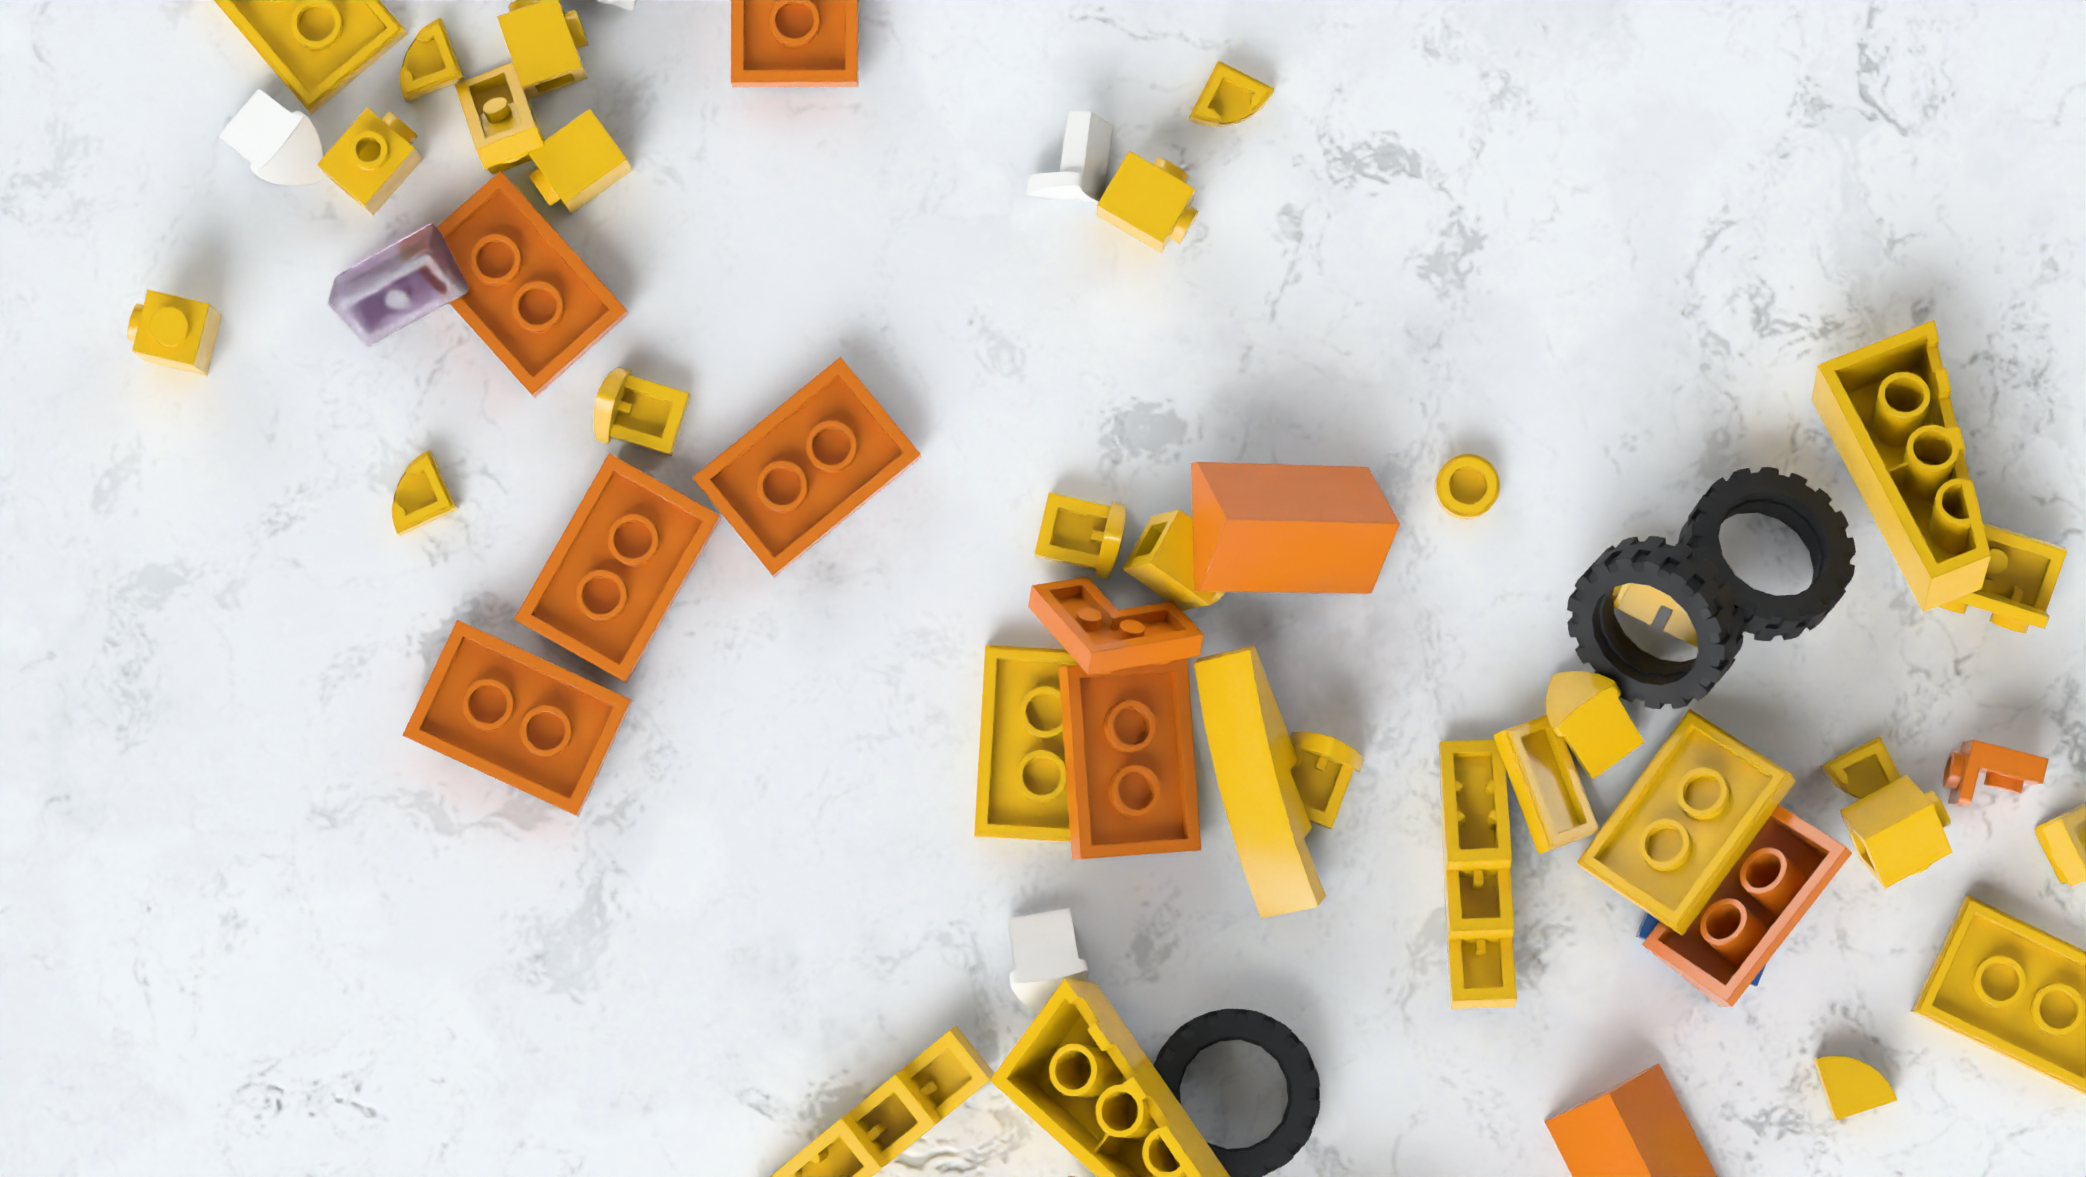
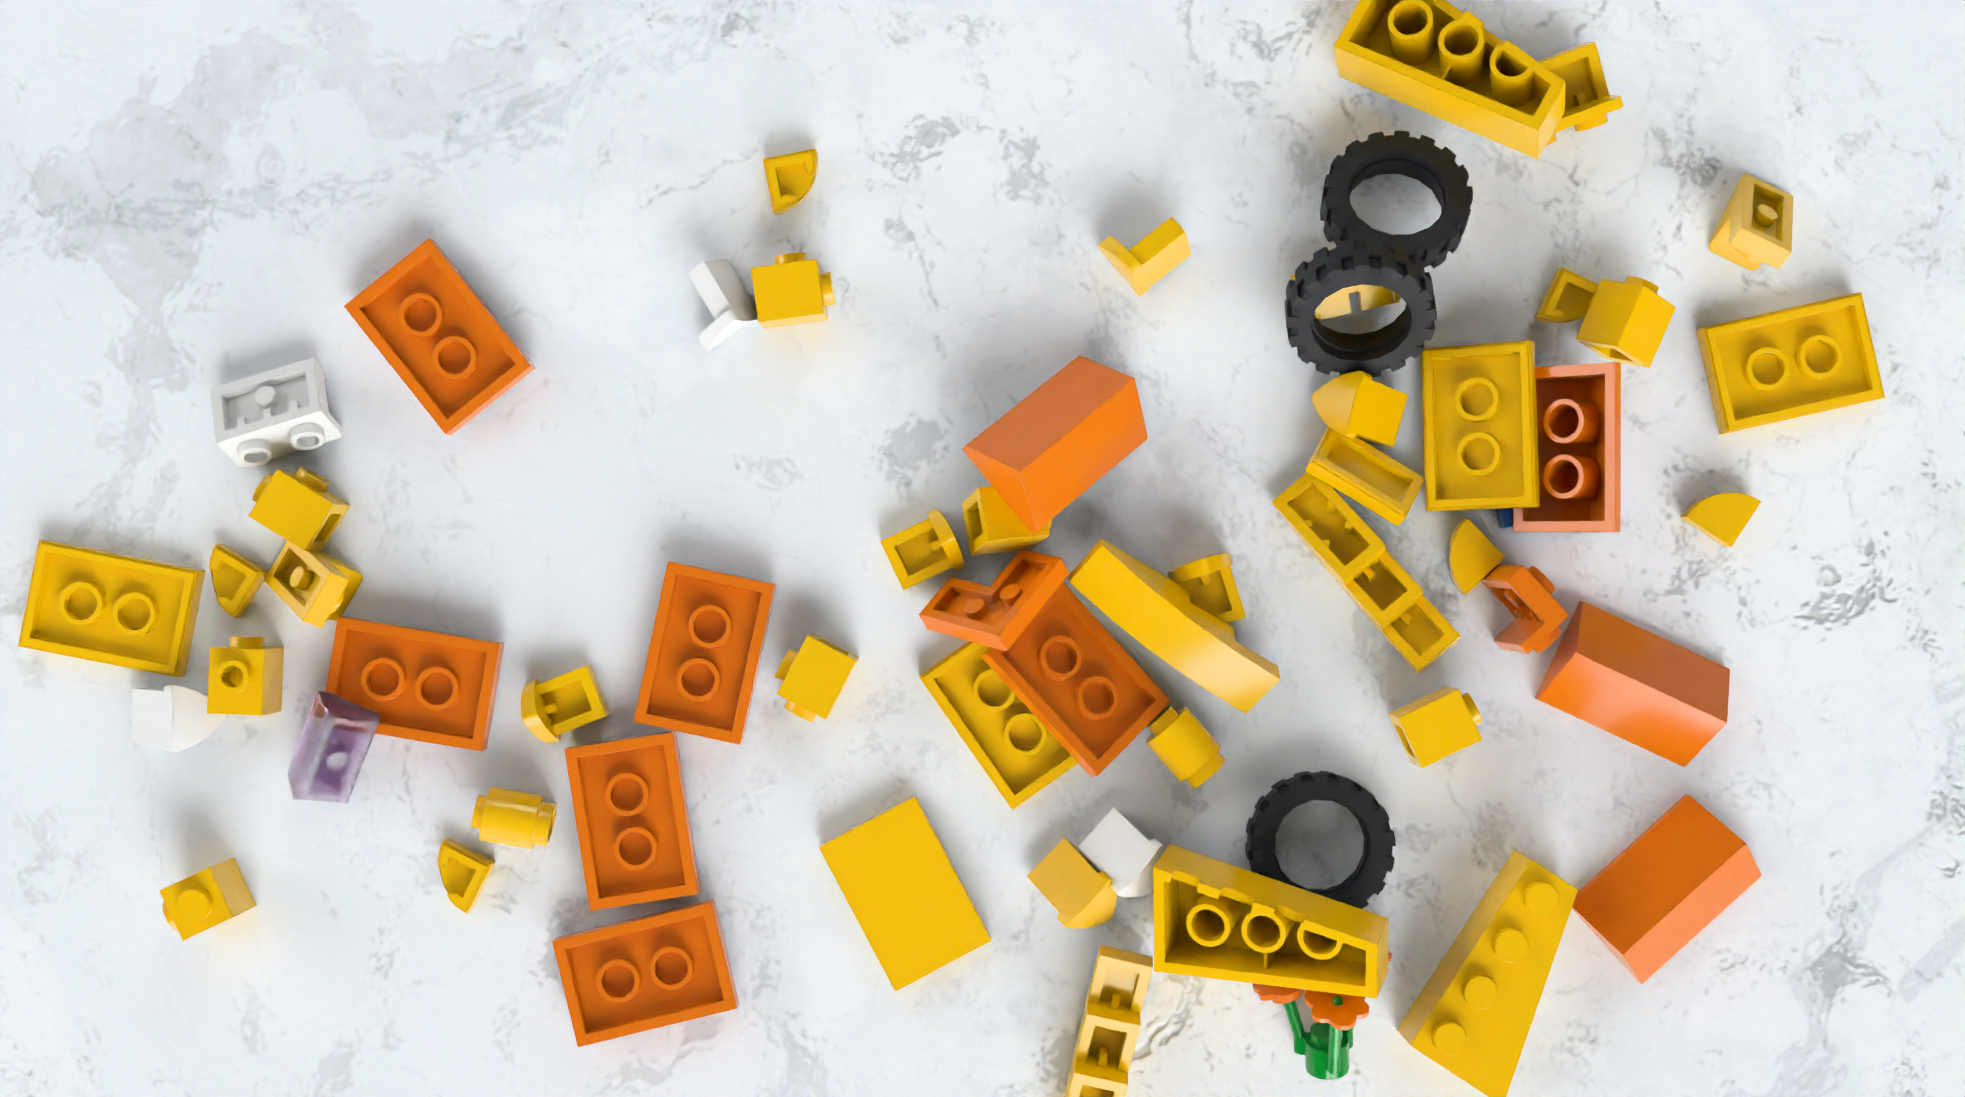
camera: 35 degrees left, 5 degrees up
(511, 480) = (514, 818): none -> yellow brick
(577, 163) = (386, 570): yellow brick -> none
(813, 835) = (905, 893): none -> yellow tile
(890, 568) = (814, 677): none -> yellow brick
(976, 954) = (1074, 887): none -> yellow tile
(1180, 901) = (1184, 746): none -> yellow brick
(1430, 1065) = (1437, 725): none -> yellow brick
(1467, 486) = (1155, 316): yellow tile -> none
(1503, 427) = (1150, 257): none -> yellow tile
(1586, 938) = (1470, 556): none -> yellow tile
(1604, 1005) = (1529, 599): none -> orange bracket
(2003, 767) = (1641, 235): orange bracket -> none

